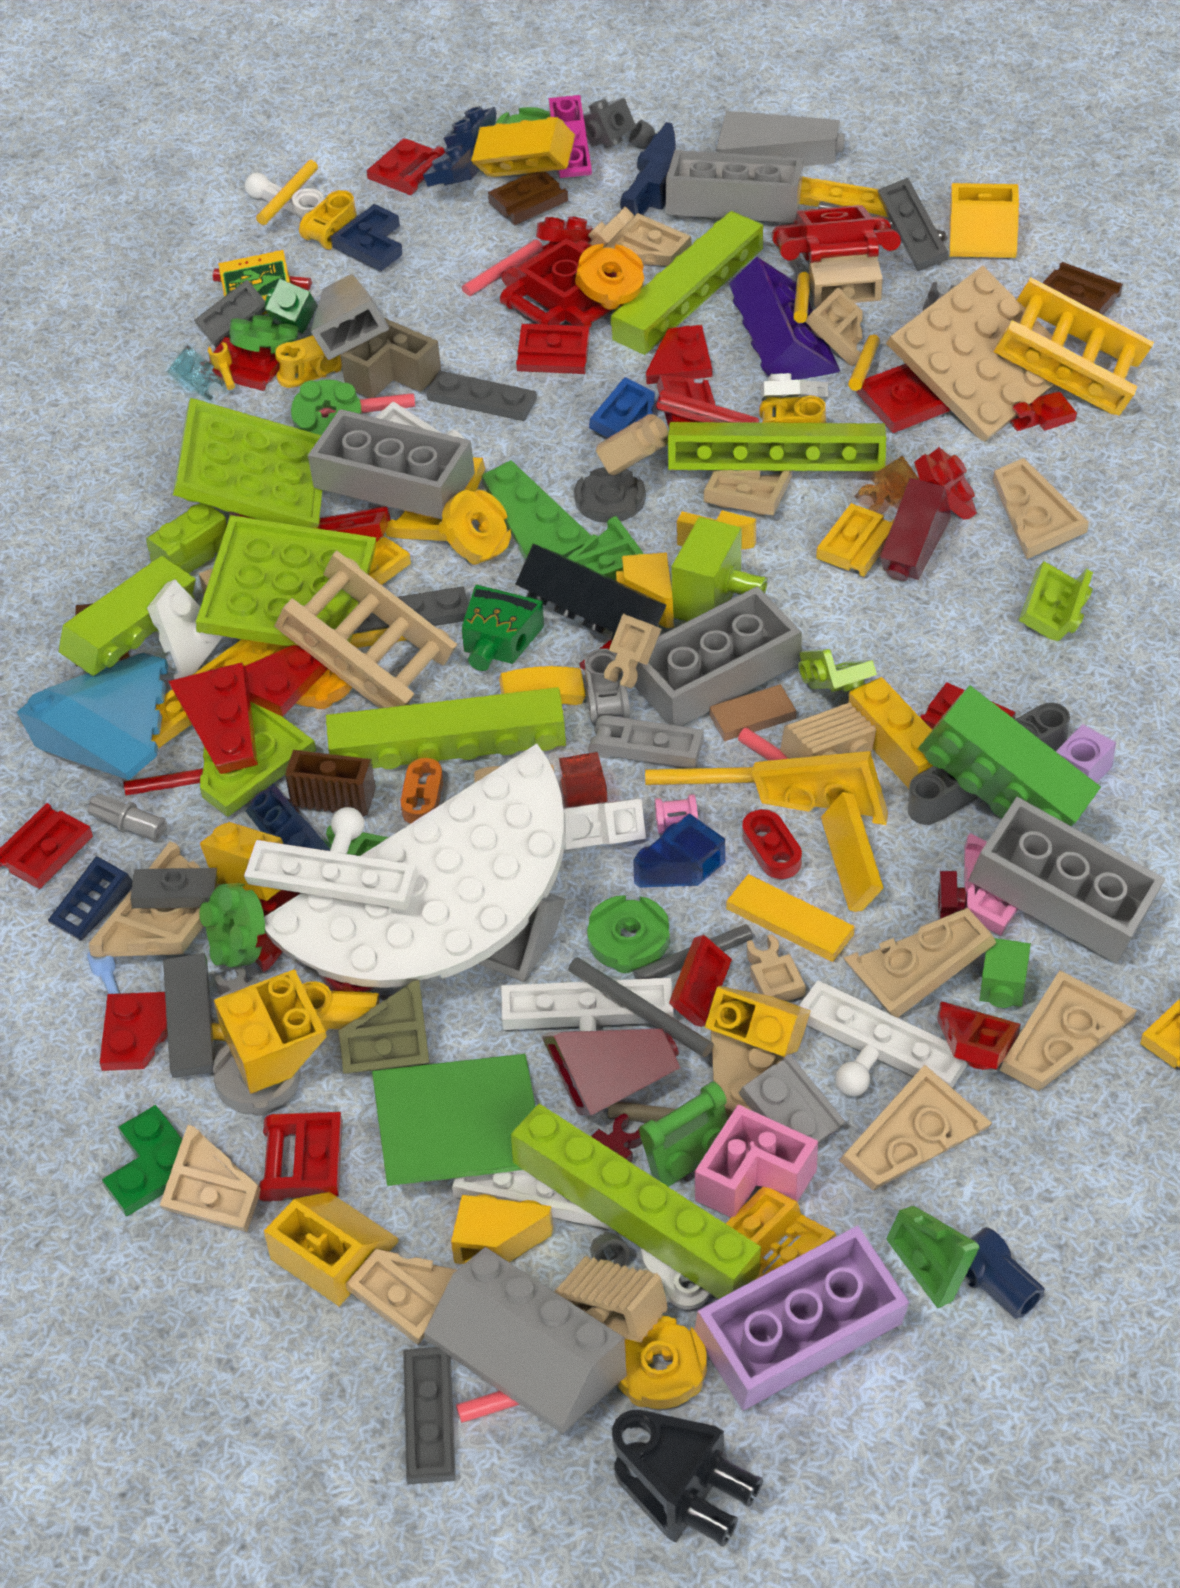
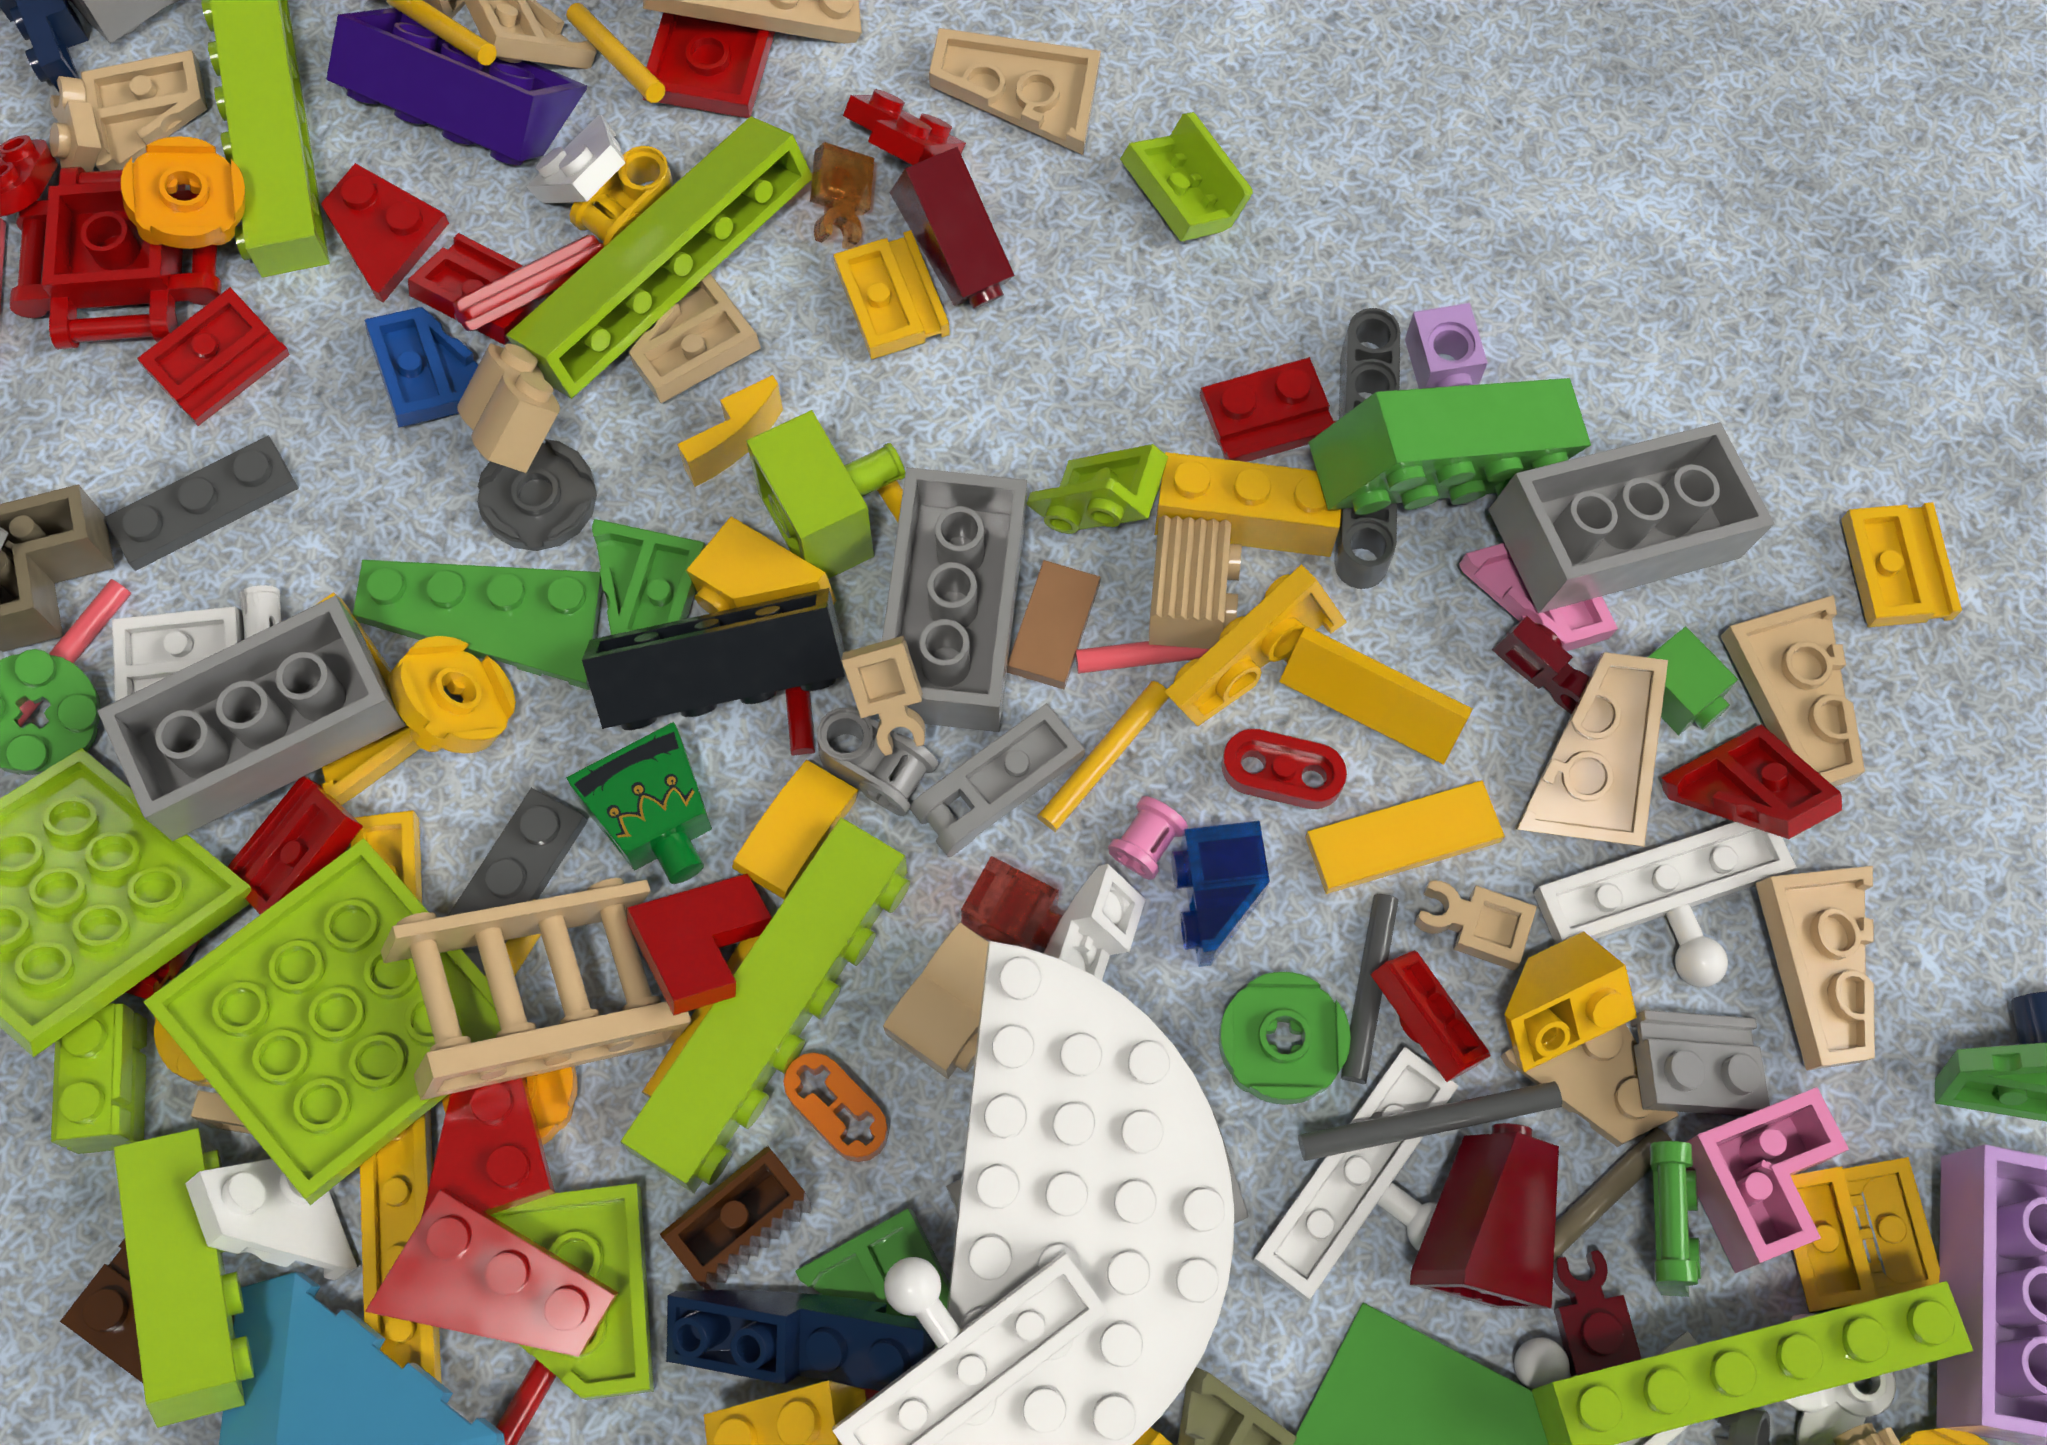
camera: 55 degrees left, 20 degrees up
(442, 672) = (684, 935): none -> red tile

